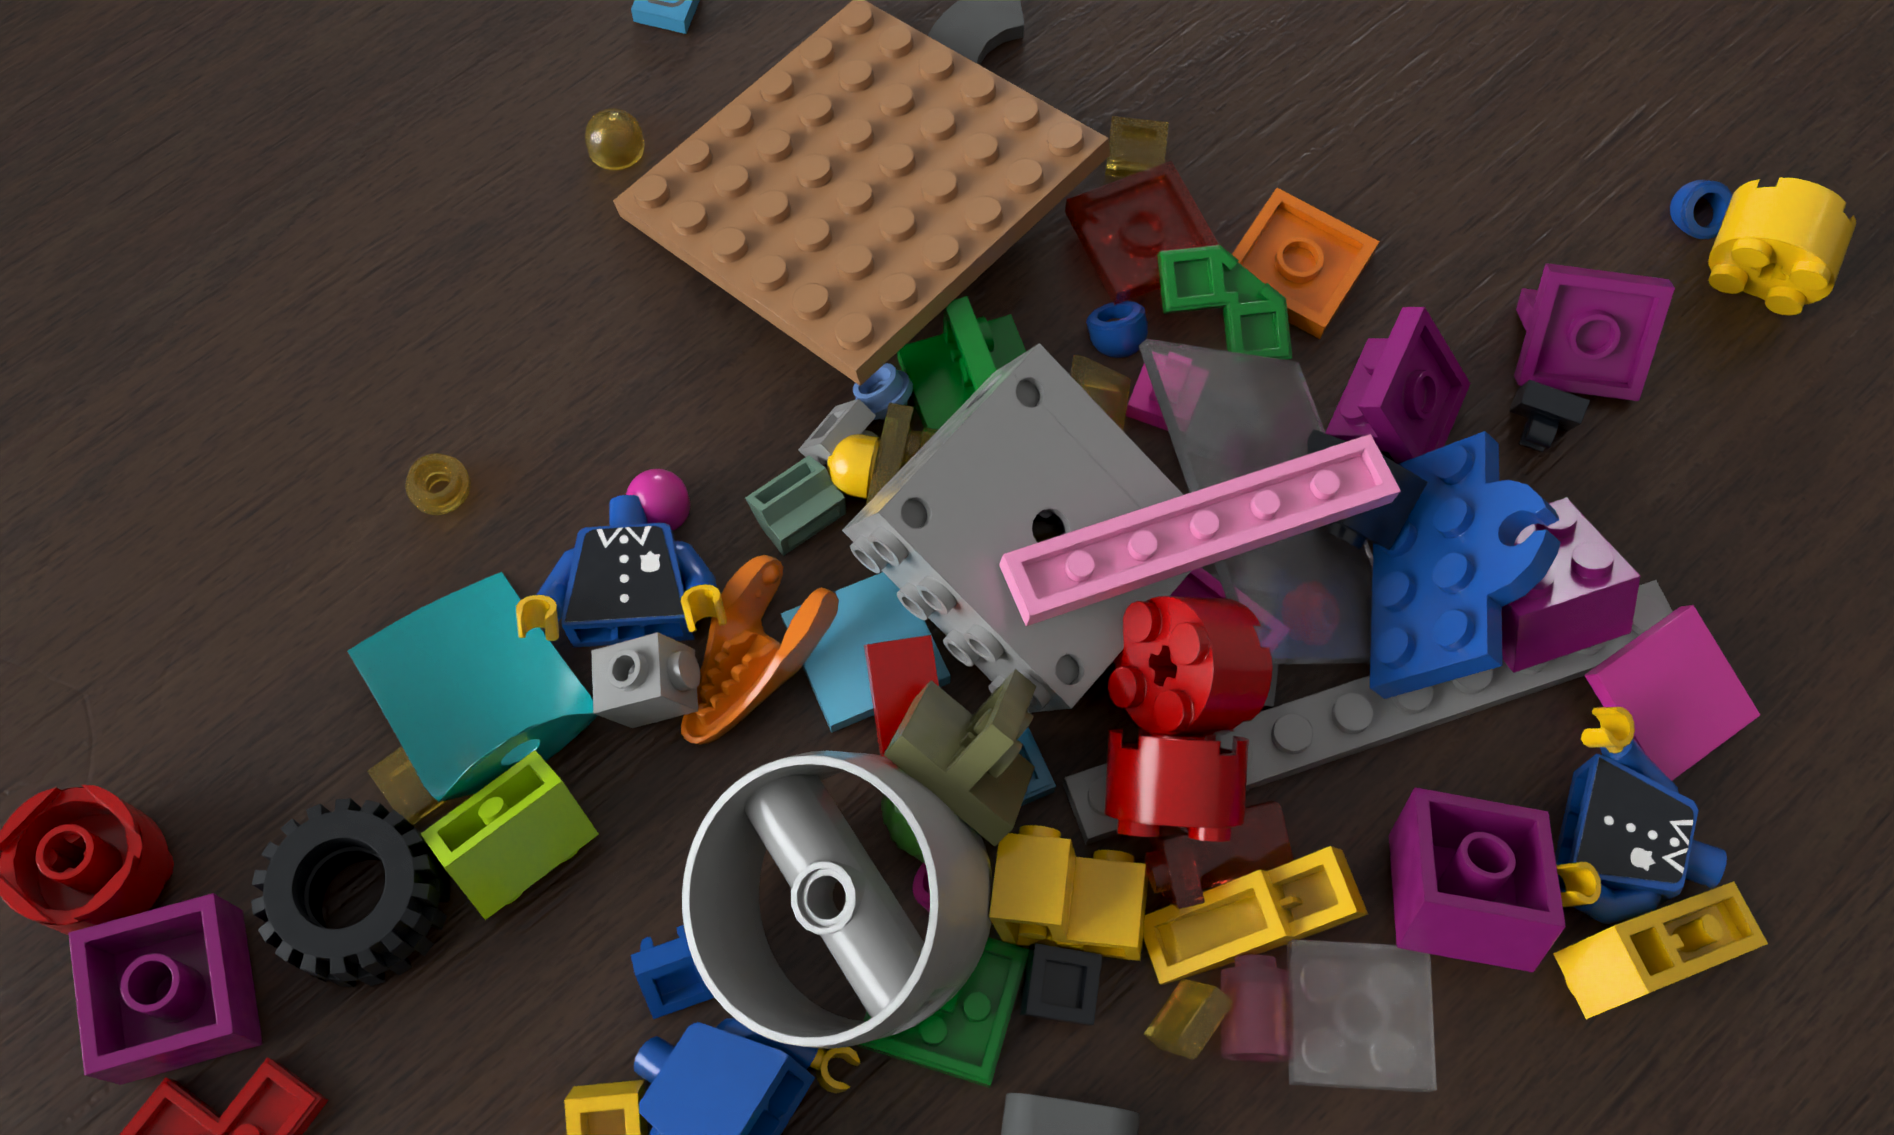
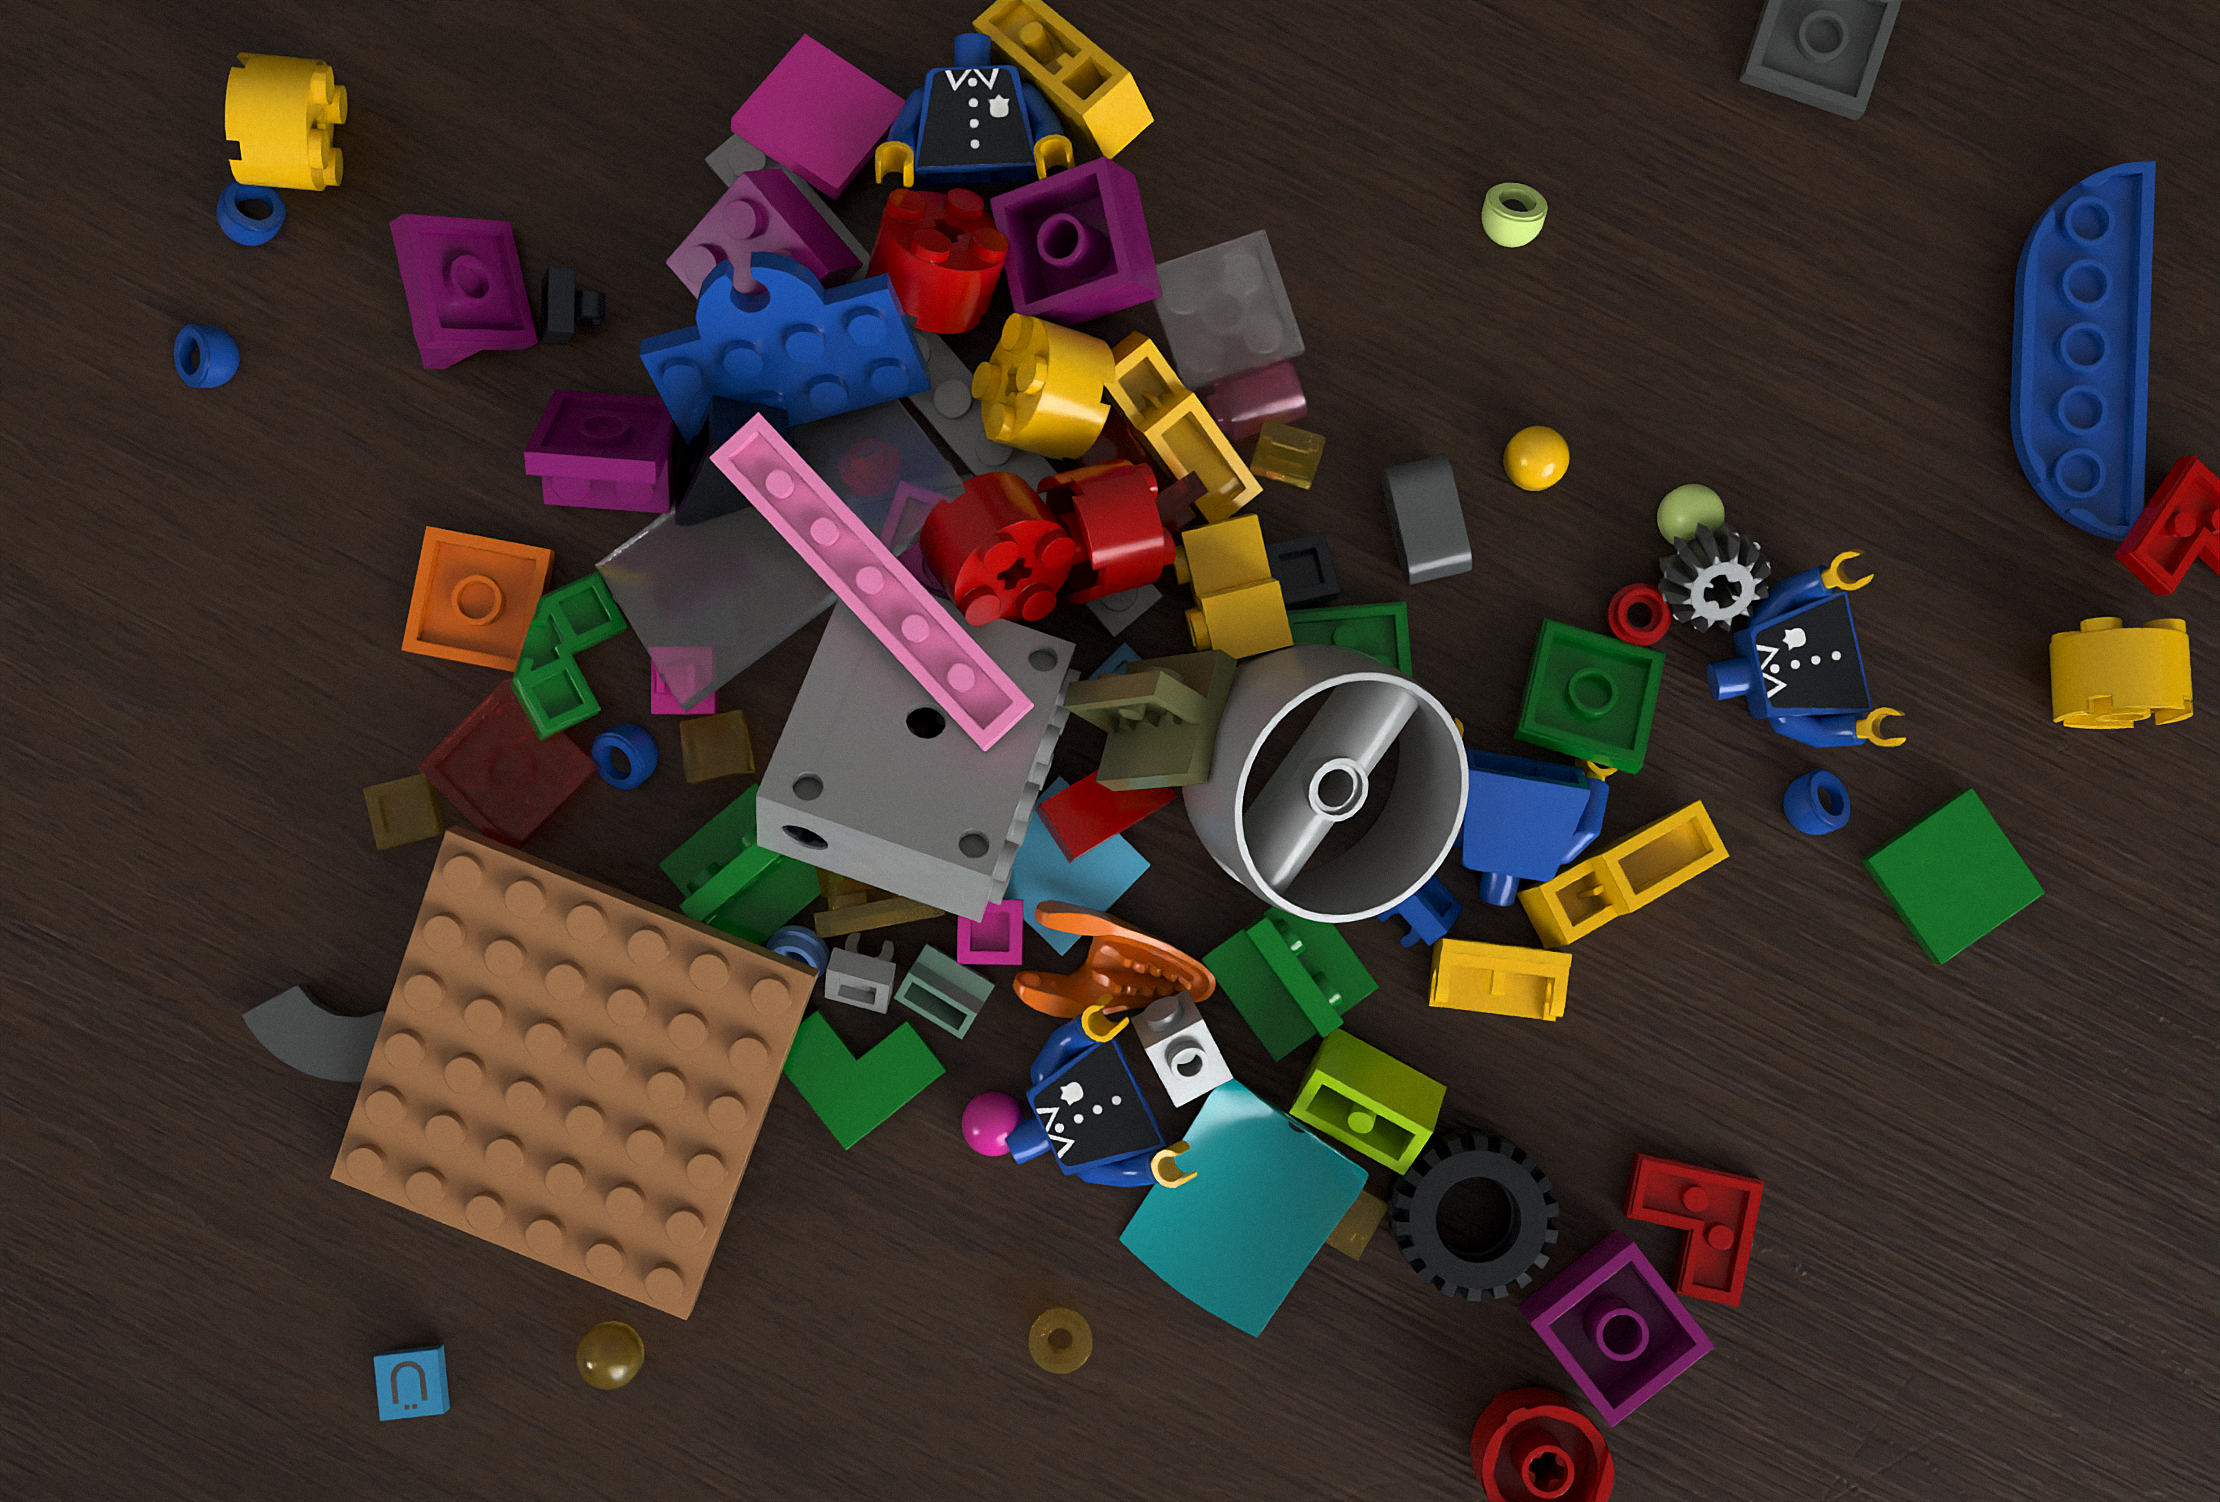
camera: 110 degrees left, 20 degrees up
(570, 1022) = (1498, 978): none -> yellow hinge
(652, 811) = (1289, 978): none -> green bracket
(745, 395) = (856, 1092): none -> green tile
(826, 556) = (996, 938): none -> dark pink tile
(853, 464) = (890, 947): yellow piece -> none
(1337, 789) = (1044, 388): none -> yellow brick
(1501, 738) = (940, 257): none -> red brick
(1582, 138) = (217, 355): none -> blue piece

